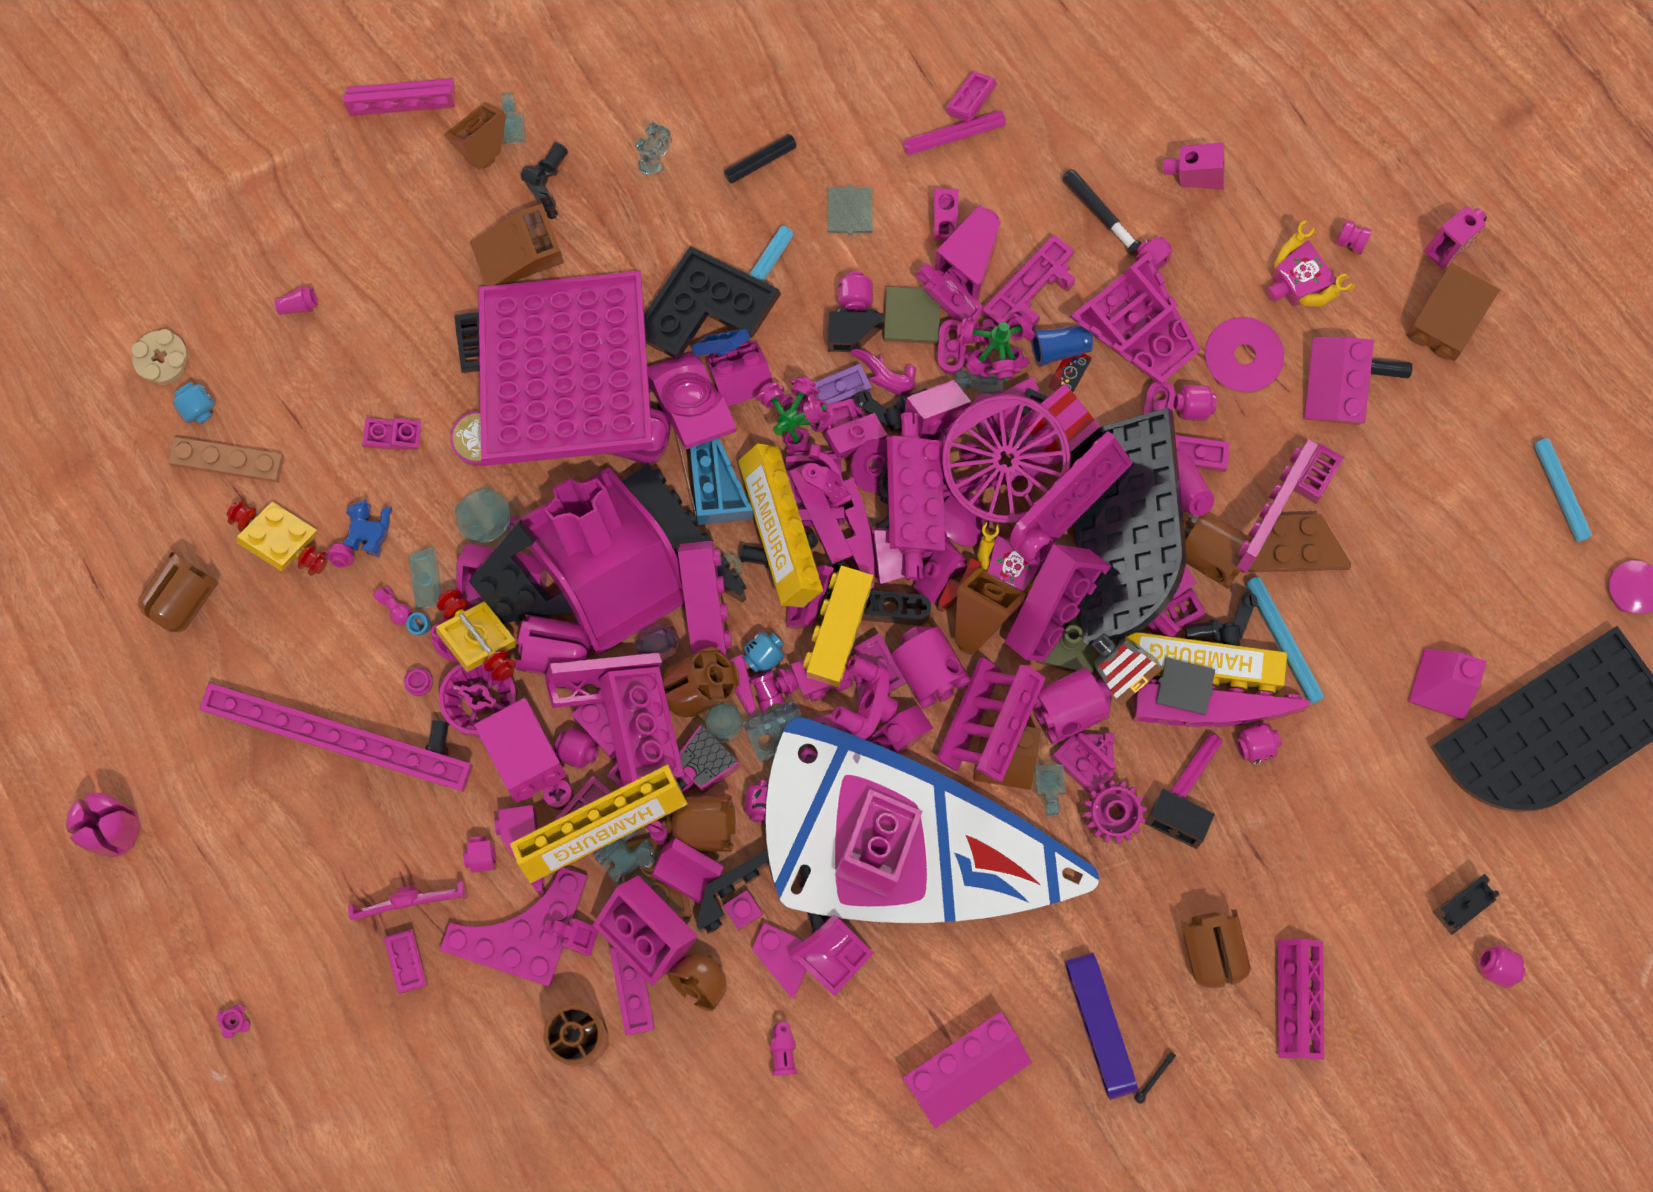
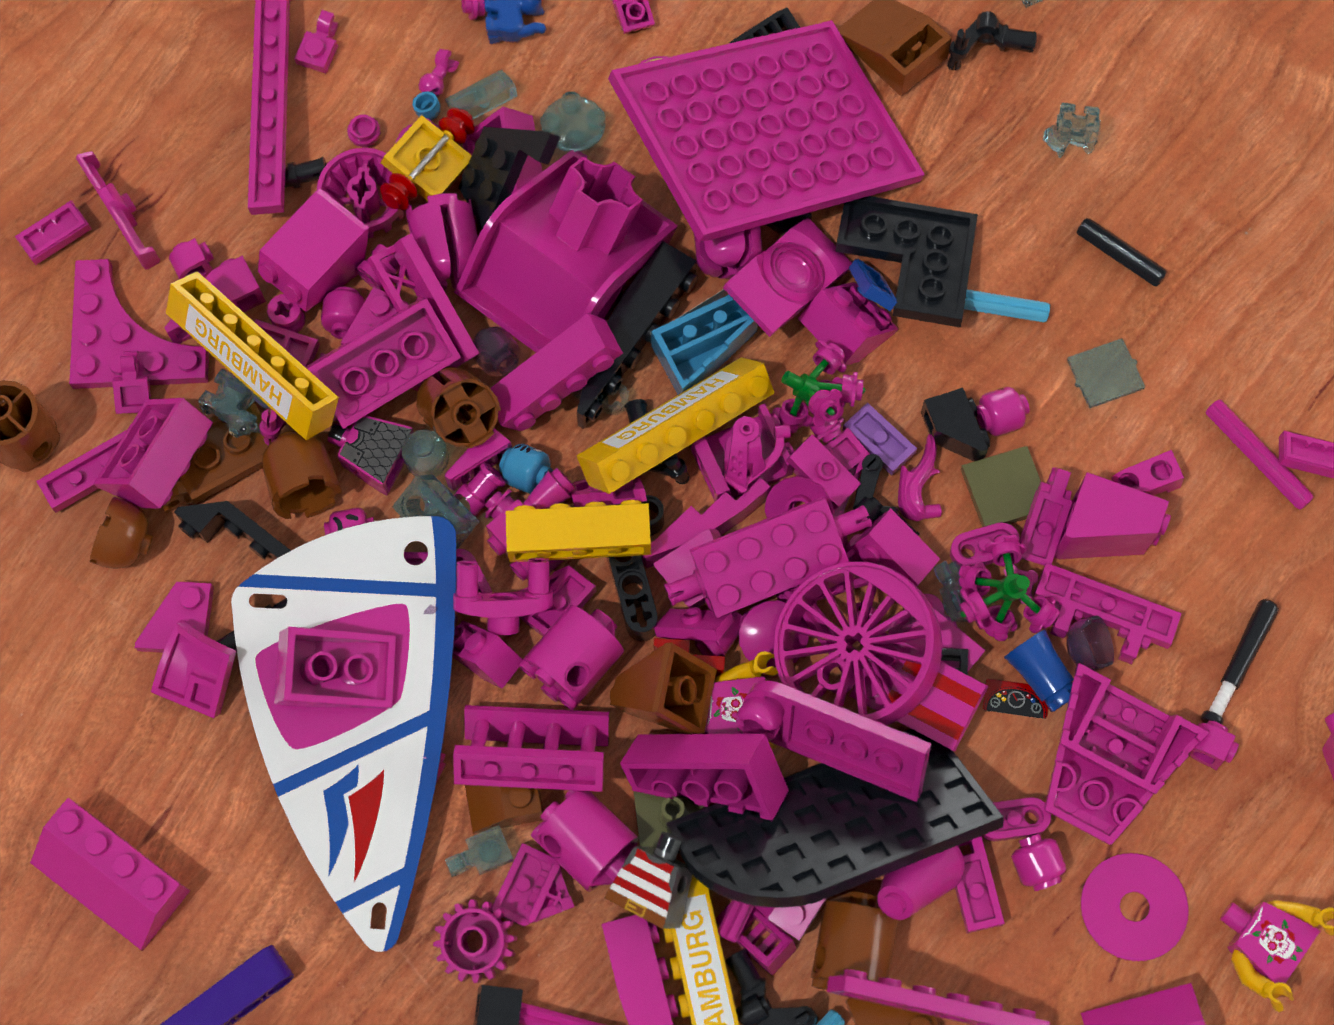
camera: 70 degrees right, 5 degrees down
(325, 694) = (319, 48): none -> dark pink plate
(548, 715) = (368, 275): none -> dark pink wheel
(685, 869) = (238, 473): dark pink panel -> none
(742, 910) = (220, 557): dark pink plate -> none
(782, 1048) = (71, 656): dark pink piece -> none
(794, 639) = (551, 490): none -> dark pink cone
(822, 518) = (699, 477): dark pink sticker -> none
(1053, 305) = (1090, 643): none -> clear purple hair
(1185, 686) = (660, 972): dark grey piece -> none

